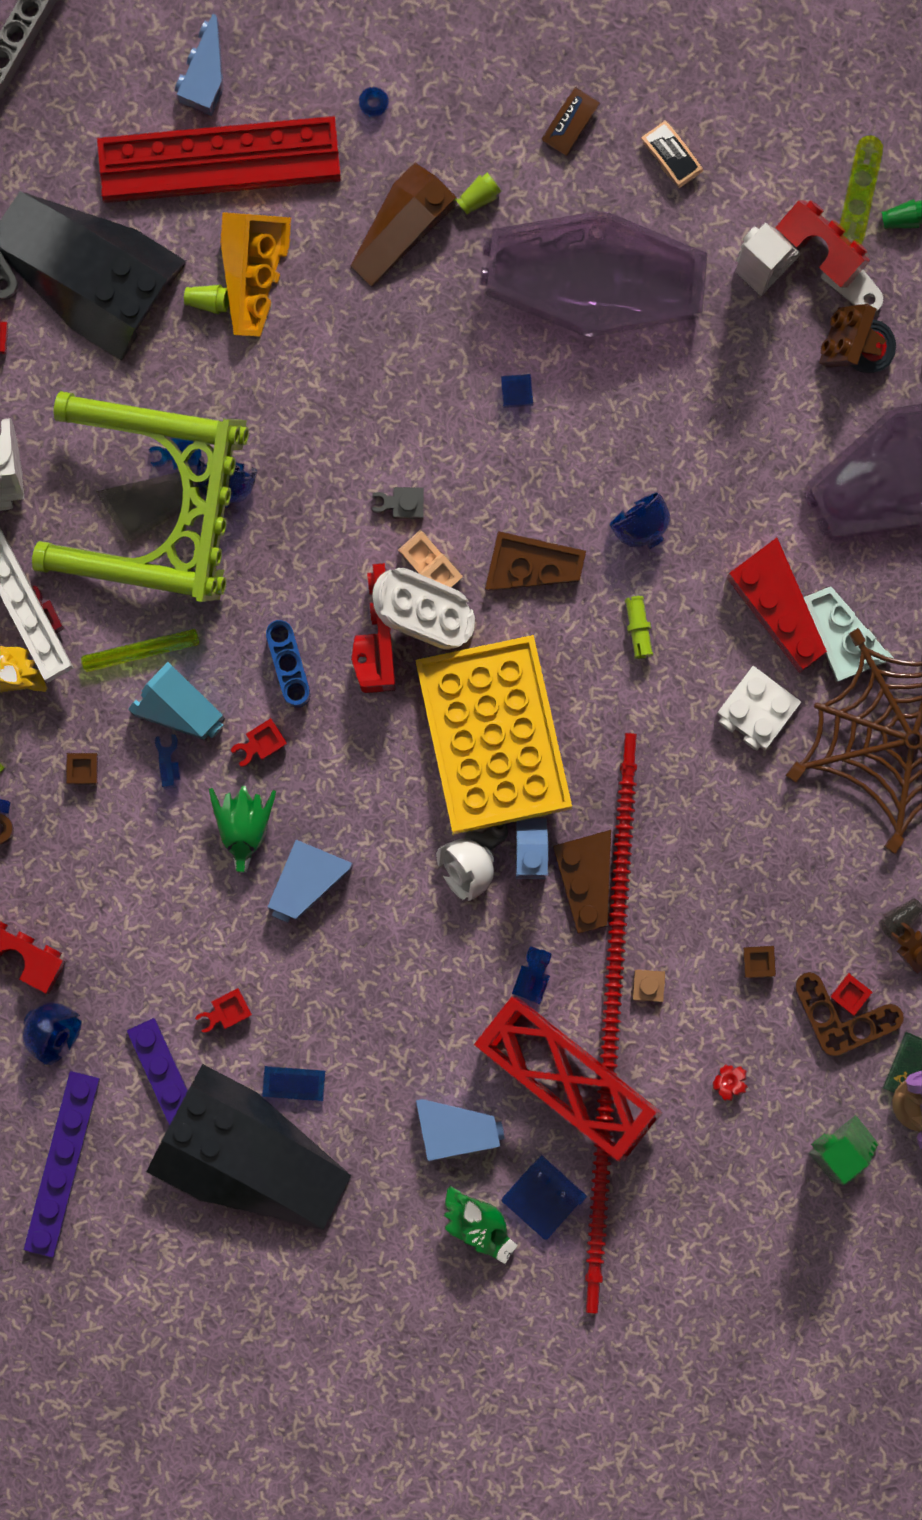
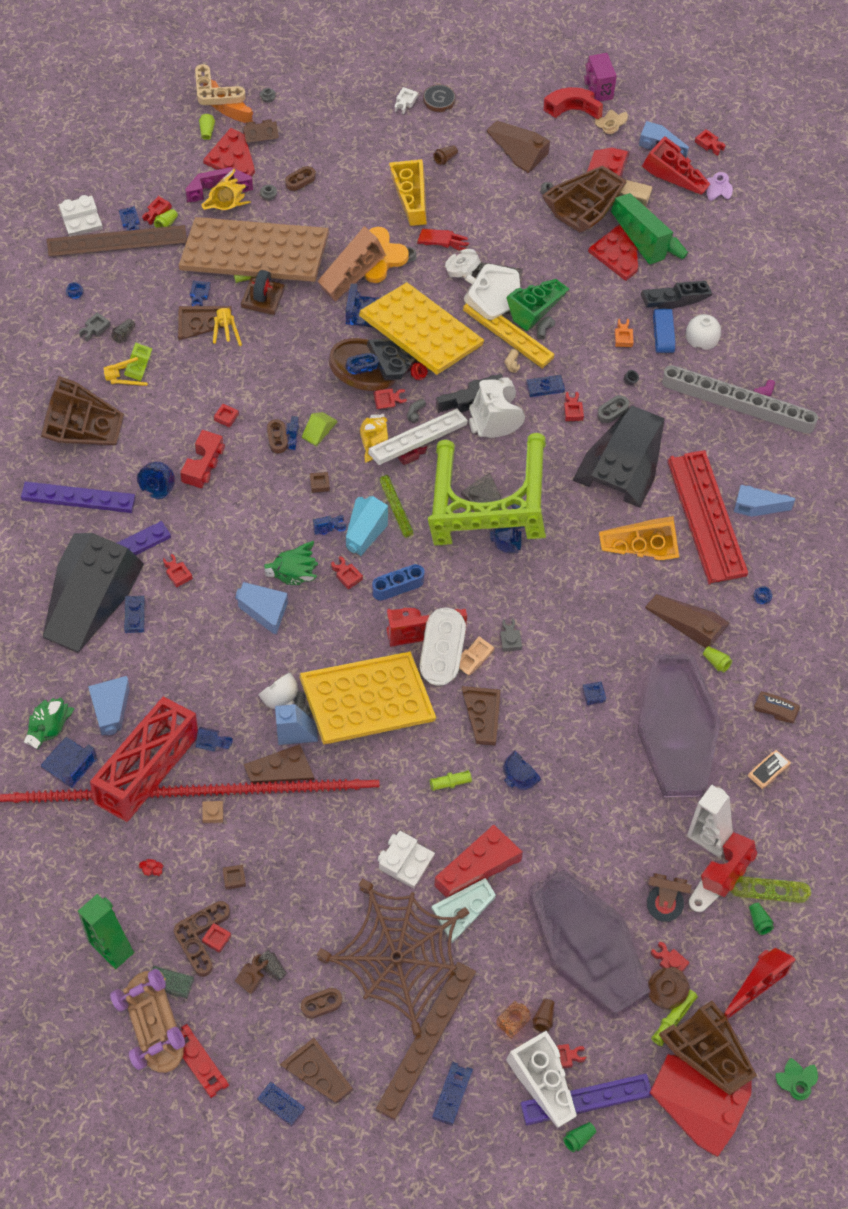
camera: 80 degrees right, 25 degrees down
(208, 298) = (619, 516): lime cone -> none

